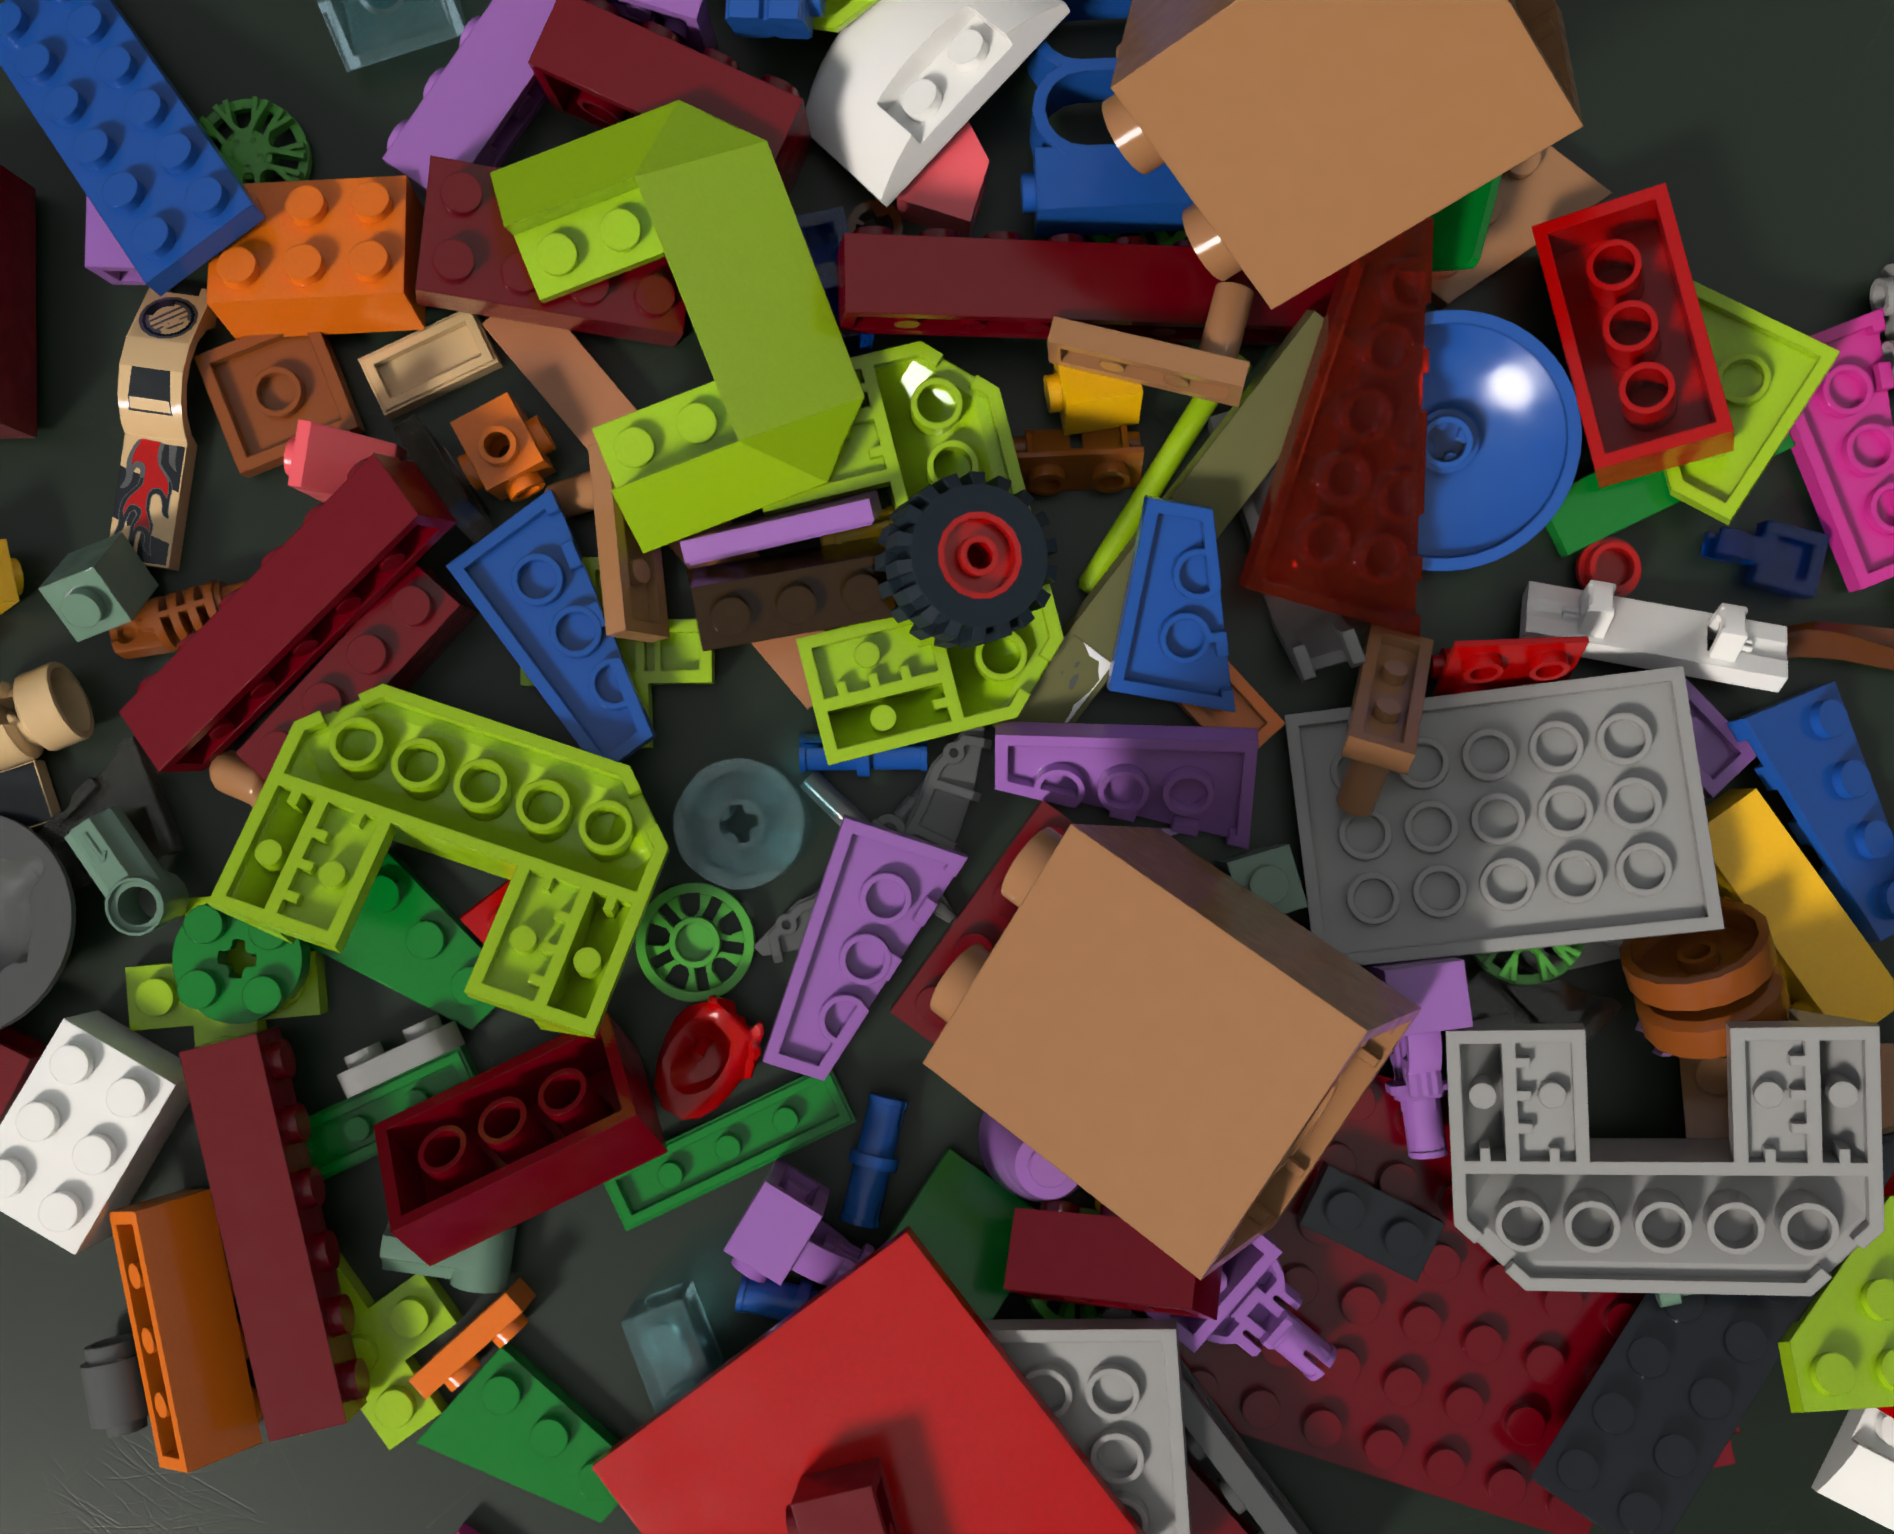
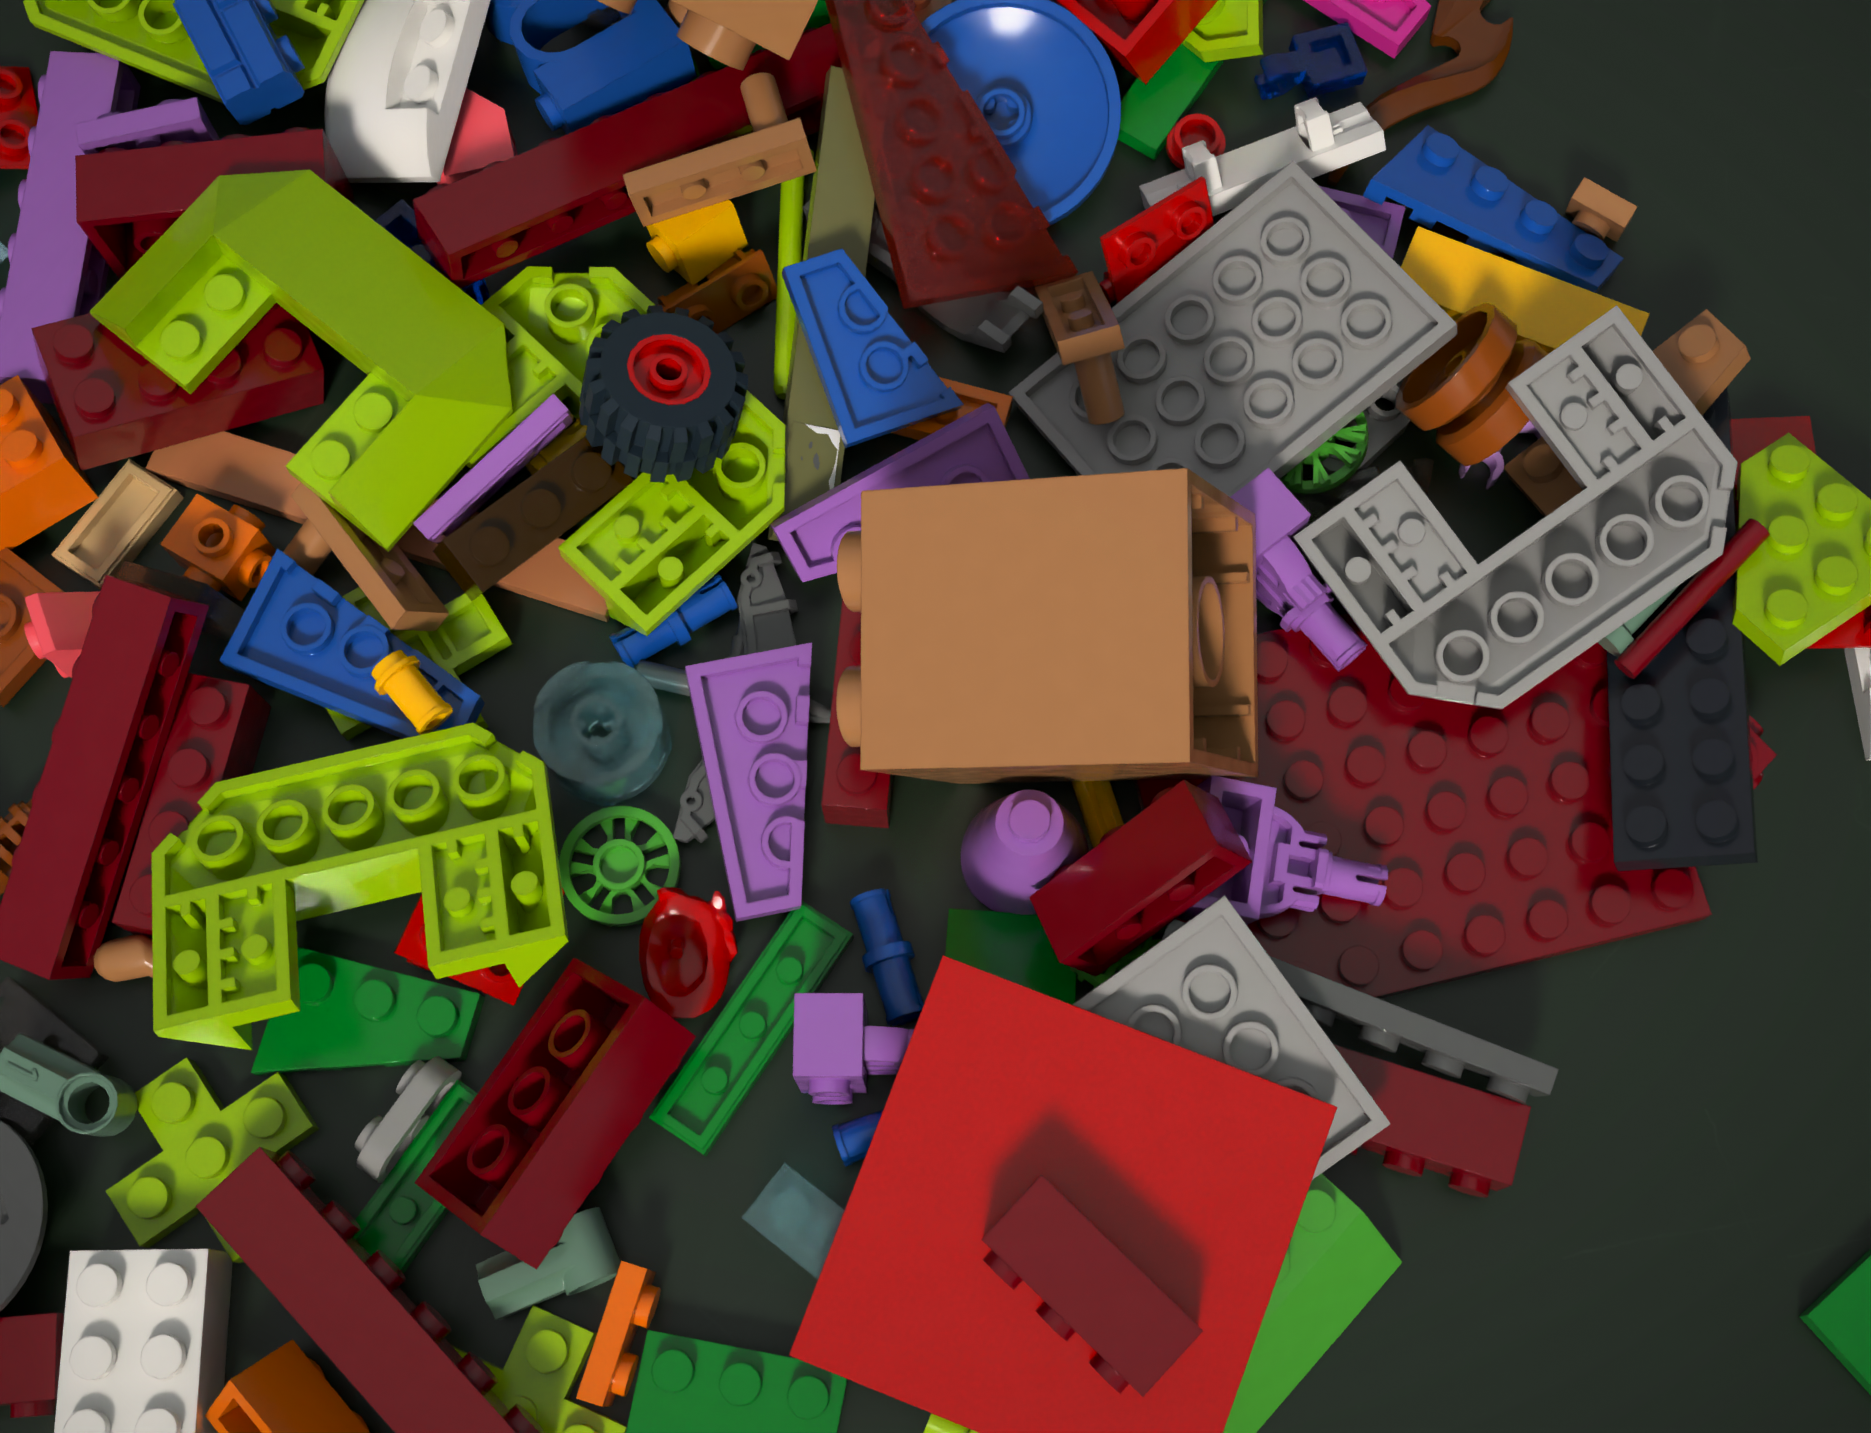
camera: 30 degrees left, 15 degrees down
(210, 982) = (174, 1093): green plate -> none
(592, 703) = (411, 691): none -> yellow pin
(1370, 1221) = (1343, 745): black plate -> none
(1732, 1308) = (1691, 599): none -> dark red bar

